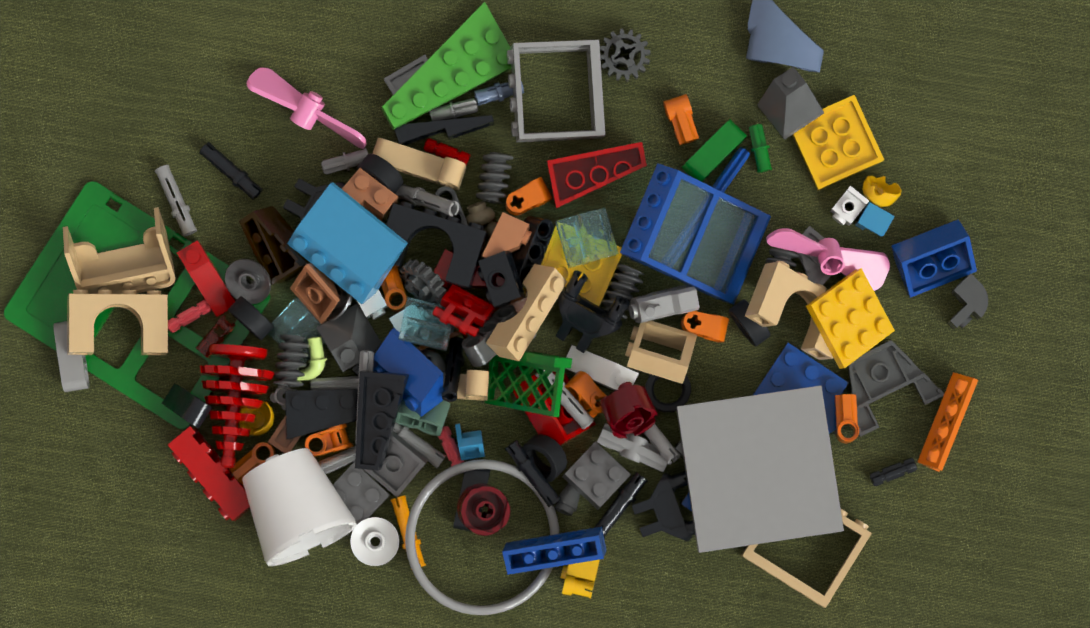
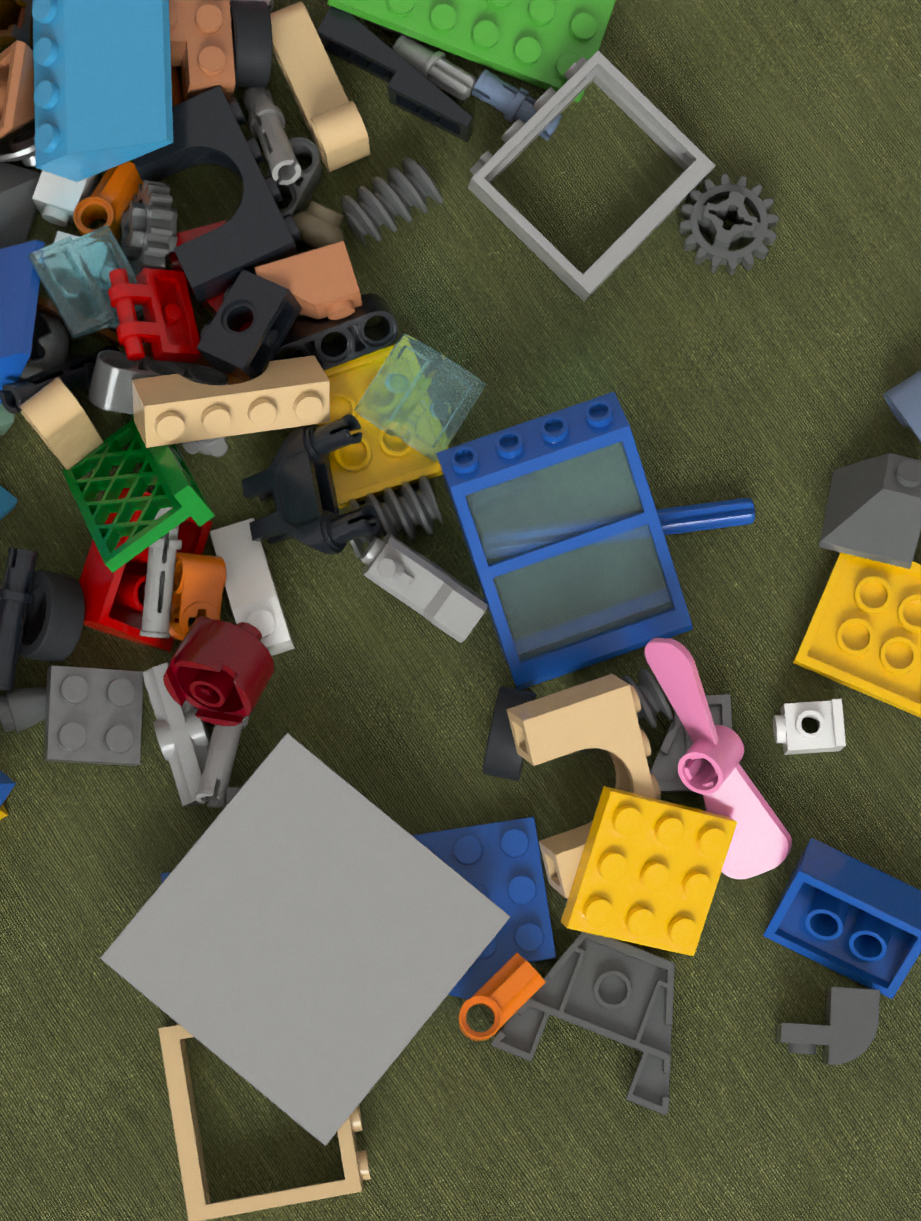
camera: 50 degrees right, 5 degrees down
(443, 150) = (359, 87): red axle -> none
(532, 196) = (411, 273): orange piece -> none
(588, 171) = (516, 318): red wedge -> none
(620, 504) = (87, 787): black pin -> none
(656, 363) = (328, 656): tan window -> none
(667, 509) = (132, 857): black connector -> none
(670, 407) = (311, 671): black tyre -> none
(680, 114) = (717, 373): orange piece -> none
(709, 326) = (453, 685): orange piece -> none
(714, 151) = (711, 467): green beam -> none
(760, 148) = (775, 528): green axle -> none
(875, 219) = (826, 780): dark azure panel -> none
(880, 192) = (872, 751): yellow hair -> none
(893, 471) = (485, 1142): black axle -> none
(947, 421) = (630, 1154): orange fence -> none

